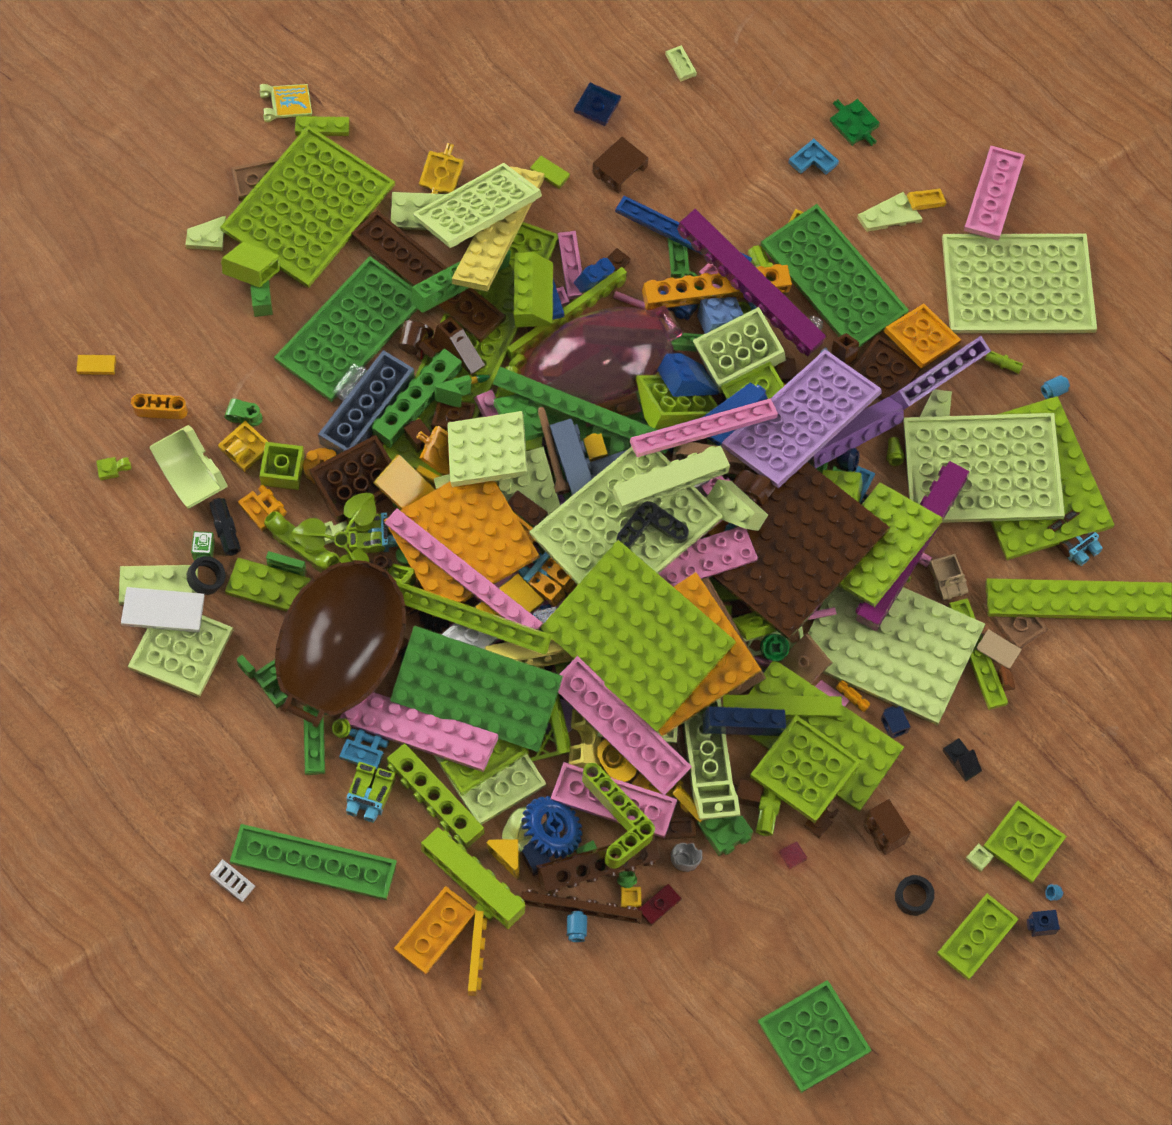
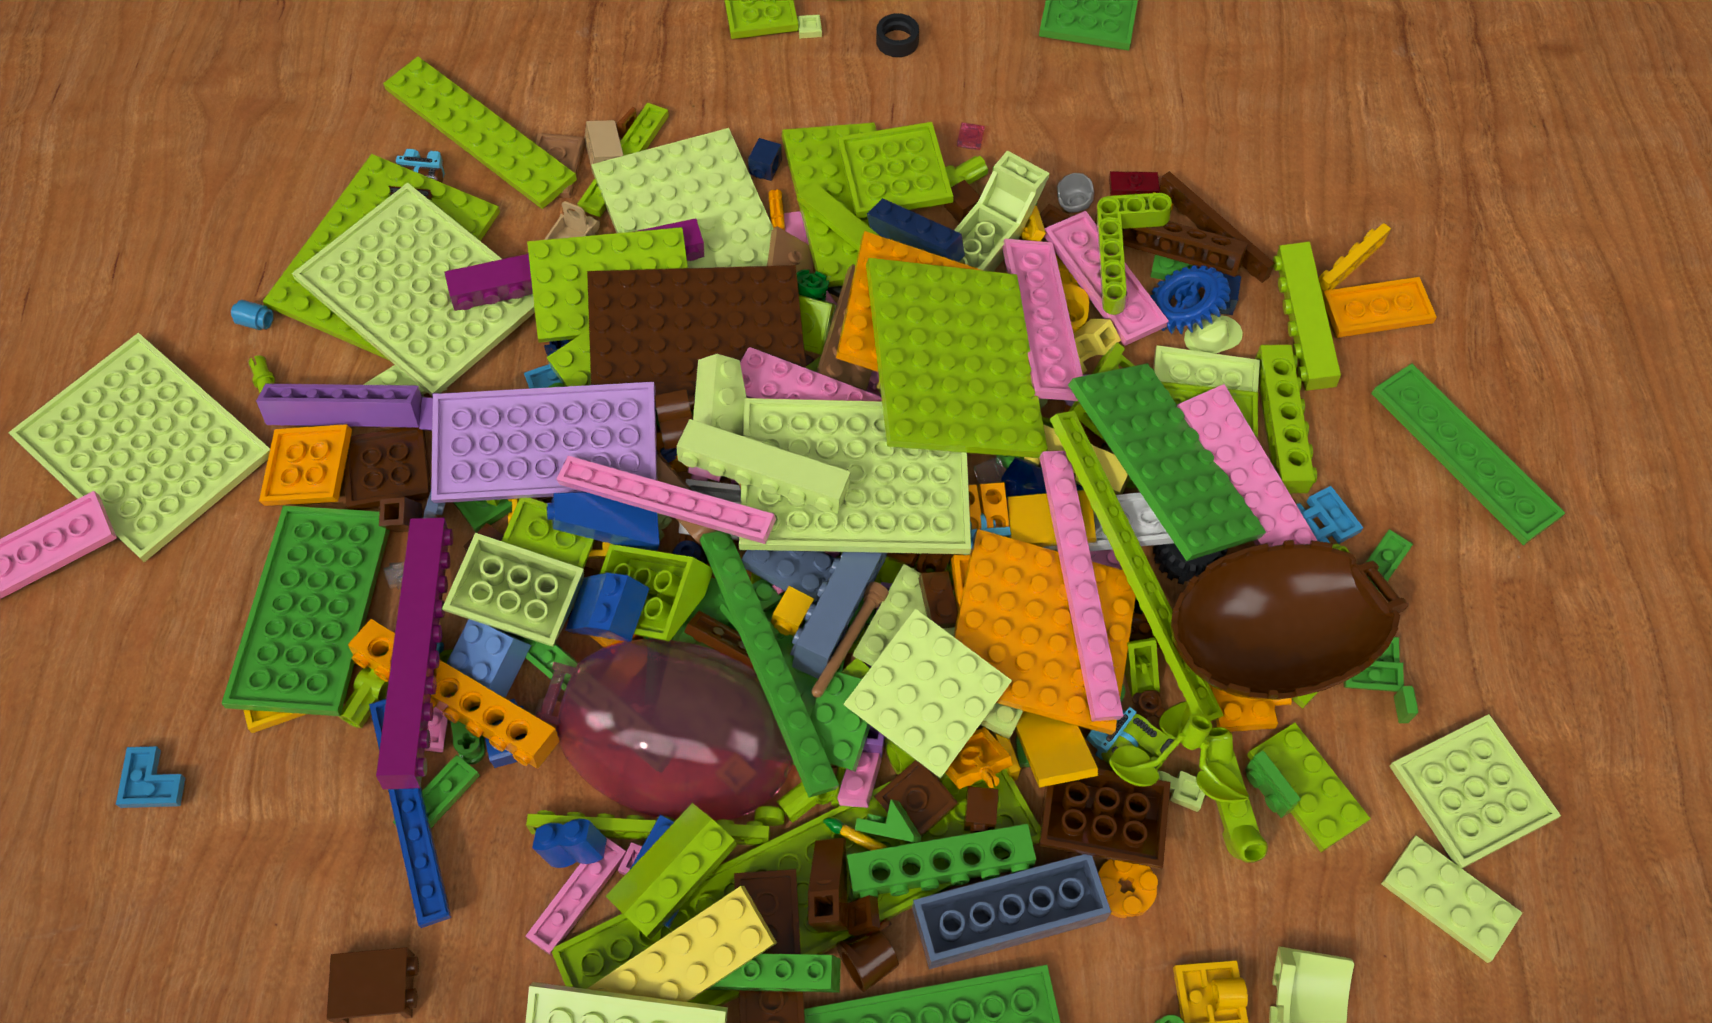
camera: 135 degrees left, 5 degrees down
(162, 609) = (1474, 849): white tile -> none
(202, 544) = (1362, 897): bright green brick -> none
(215, 566) = (1386, 829): black tyre -> none
(225, 526) = (1314, 902): black piece -> none
(236, 875) = (1587, 511): white slope -> none
(257, 510) = (1255, 891): light orange plate -> none
(282, 465) = (1184, 918): lime brick -> none
(349, 381) = (998, 964): clear hinge -> none
(367, 798) = (1355, 470): hips -> none
(507, 854) = (1257, 307): yellow slope -> none
(576, 926) = (1236, 211): dark azure brick -> none
(619, 259) = (515, 854): reddish brown plate -> none
(630, 300) = (556, 786): bright pink bar -> none
(657, 514) = (825, 449): black beam -> none
(854, 122) = (44, 789): green plate -> none
(886, 827) = (870, 83): reddish brown brick -> none
(889, 213) = (157, 638): yellowish green wing -> none
(894, 452) = (479, 379): lime cone -> none
(926, 199) = (101, 615): yellow plate -> none
(963, 759) = (737, 99): black slope -> none

